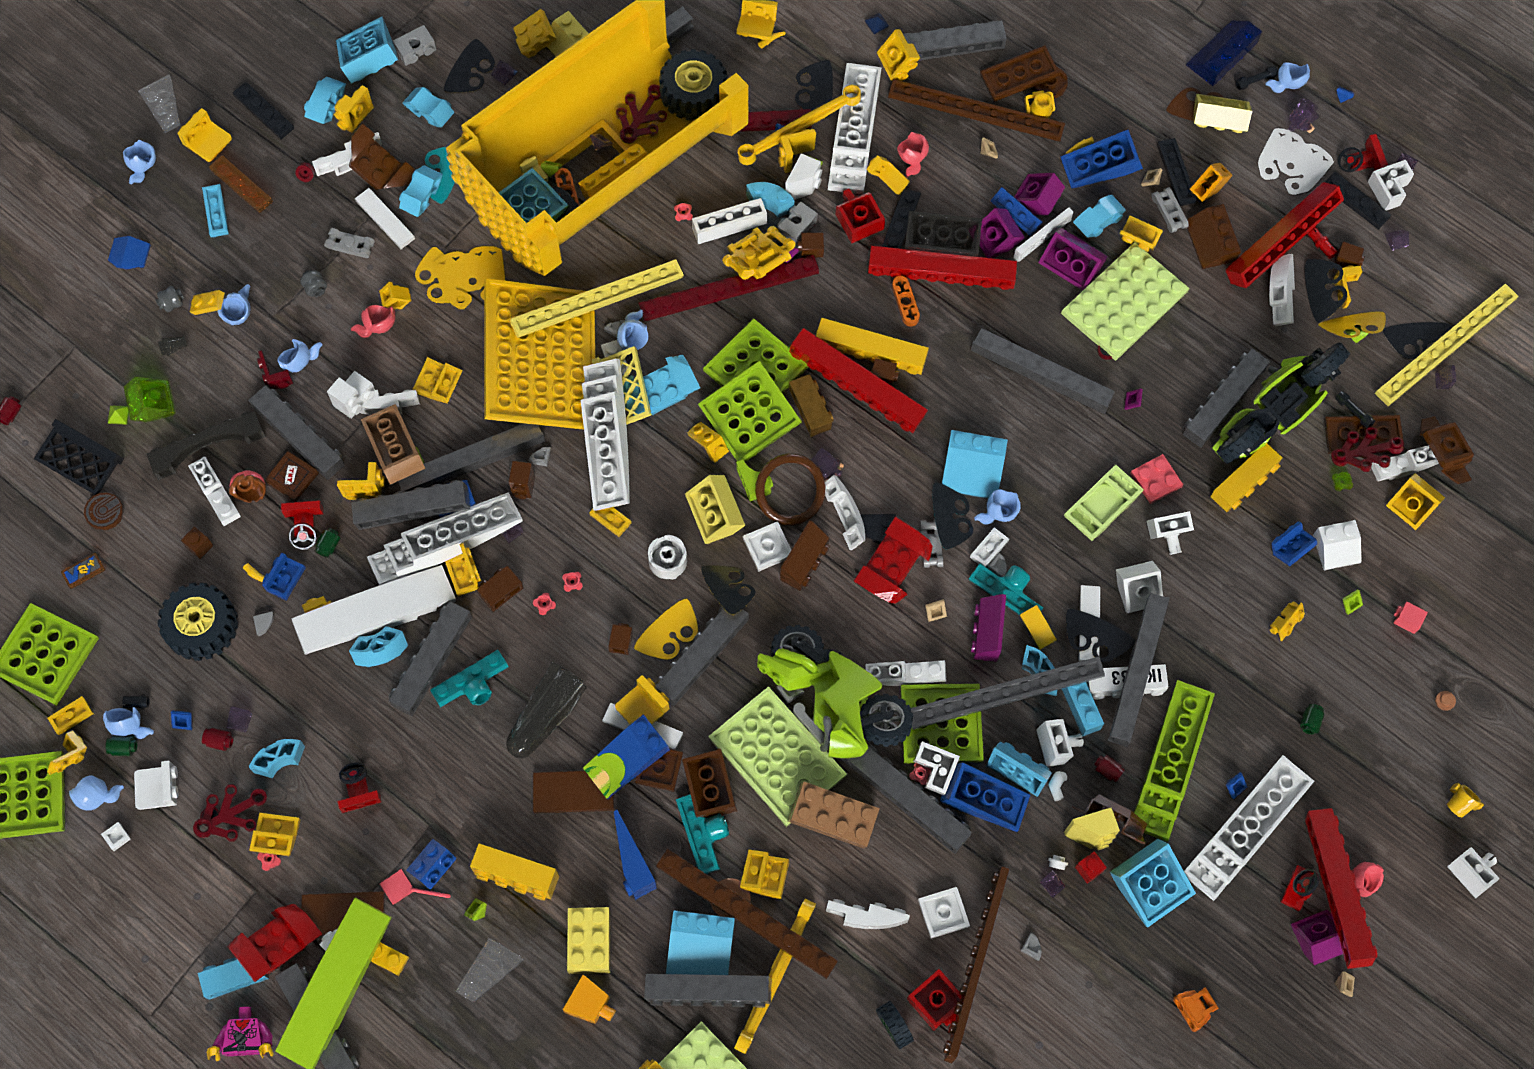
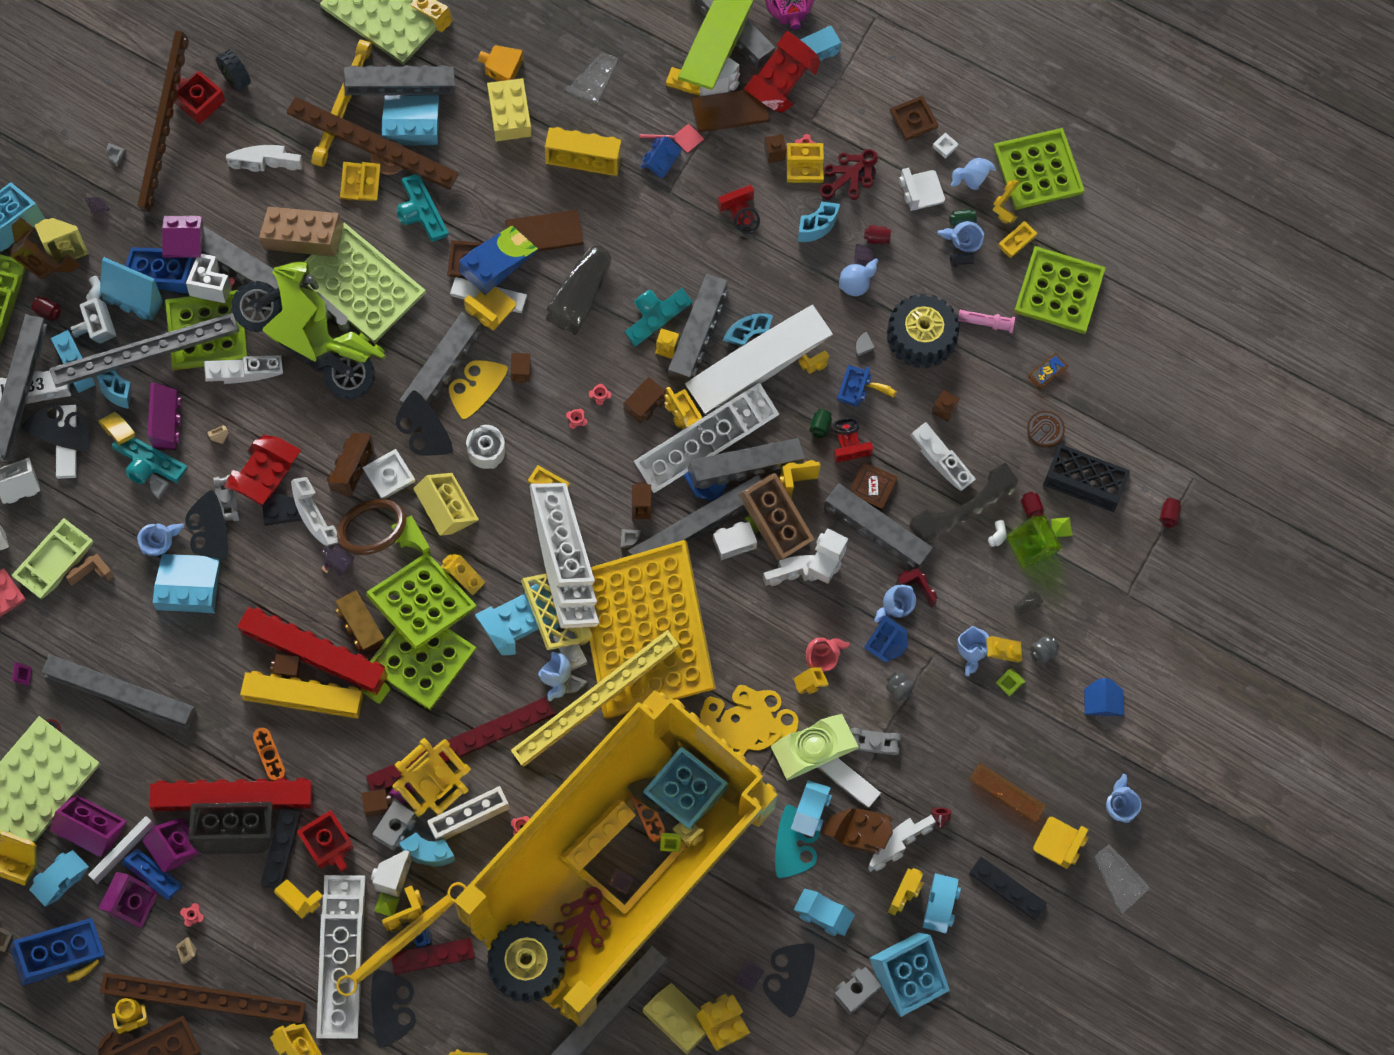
camera: 170 degrees right, 0 degrees up
(120, 626) = (995, 322): none -> bright pink pin
(140, 433) = (1032, 505): none -> dark red brick
(141, 874) = (913, 118): none -> reddish brown plate
(181, 720) = (915, 249): blue slope -> none
(183, 408) = (1000, 535): none -> white arm
(209, 280) = (1010, 682): none -> lime slope
(215, 210) = (1027, 761): medium azure tile -> none
(247, 486) = (911, 467): dark orange hair -> none
(251, 690) = (856, 278): none -> light blue hair
(303, 854) = (775, 148): none -> reddish brown brick
(316, 328) = (888, 640): none -> blue slope
(405, 241) = (814, 746): none -> yellowish green slope
(437, 380) = (749, 602): yellow slope -> none
(438, 437) = (734, 540): none -> white brick
(465, 645) = (667, 343): none -> yellow brick
(476, 910) = (614, 124): lime slope -> none
(636, 872) = (474, 164): blue slope -> none
(709, 784) = (417, 245): reddish brown slope -> none
(912, 152) = (272, 930): coral hair -> none
(943, 912) = (196, 170): white plate -> none
(961, 811) = (182, 236): none -> magenta slope
(982, 181) = (189, 921): none -> coral plate
(989, 547) = (167, 500): white plate -> none
(1057, 490) = (91, 563): none -> medium nougat bracket
(1057, 862) = (93, 222): white plate -> none
(1090, 867) = (63, 214): red brick -> none

